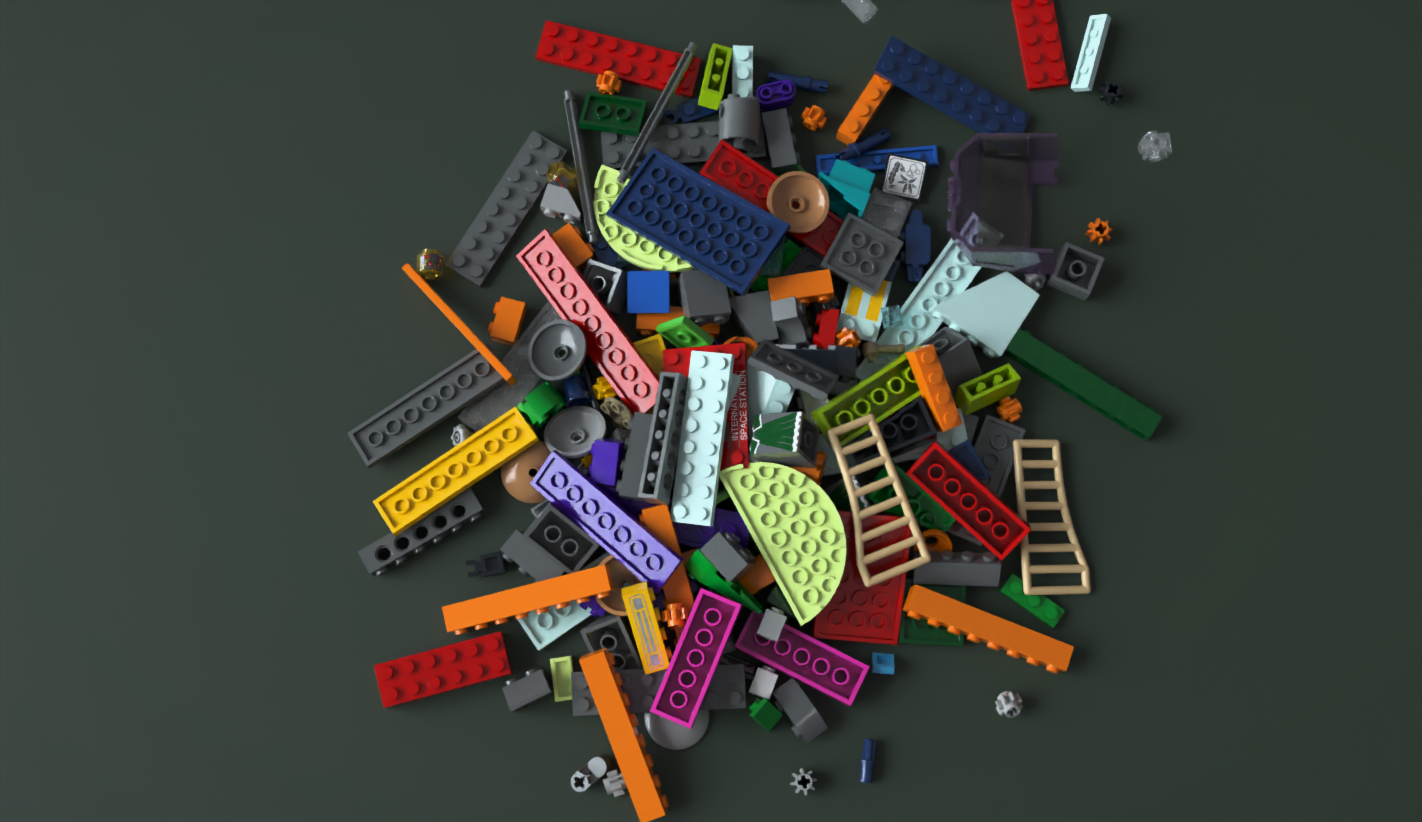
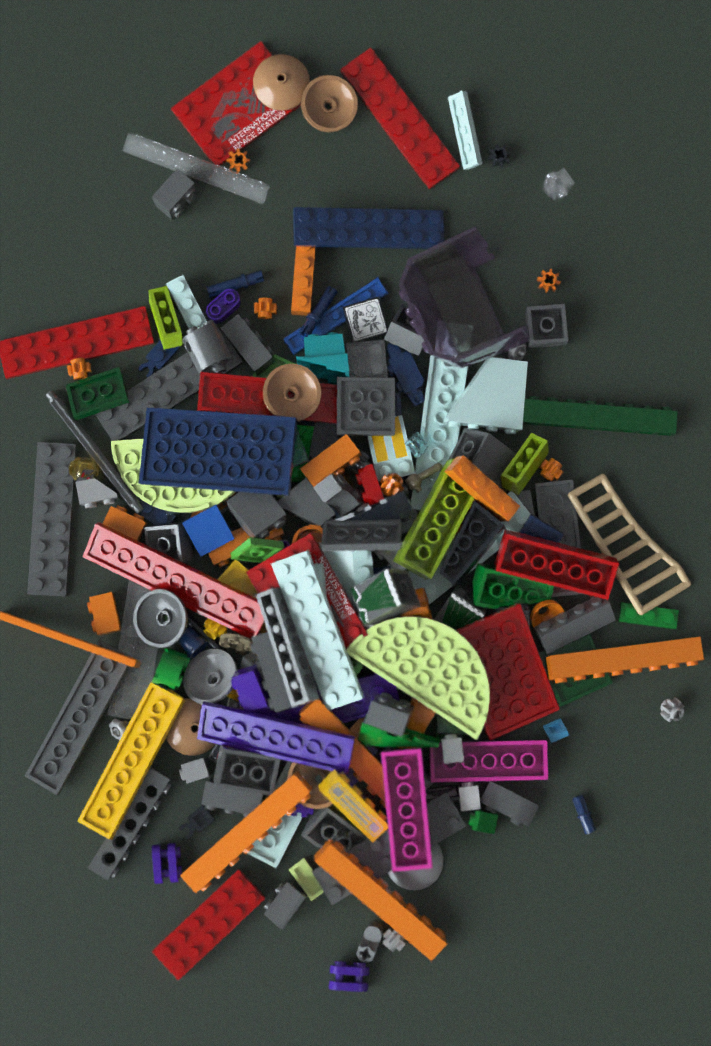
camera: 25 degrees left, 5 degrees up
(429, 264) = (15, 601): clear yellow head -> none
(446, 583) = (174, 871): none -> dark purple brick
(511, 514) = (194, 770): none -> light grey brick
(547, 783) = (340, 968): none -> dark purple brick
(656, 114) = (134, 374): dark grey piece -> none
(675, 615) = (371, 783): orange gear -> none
(808, 785) = (547, 858): light grey gear -> none
(901, 498) = (475, 625): tan bar -> none
(934, 205) = (403, 334): none -> brick

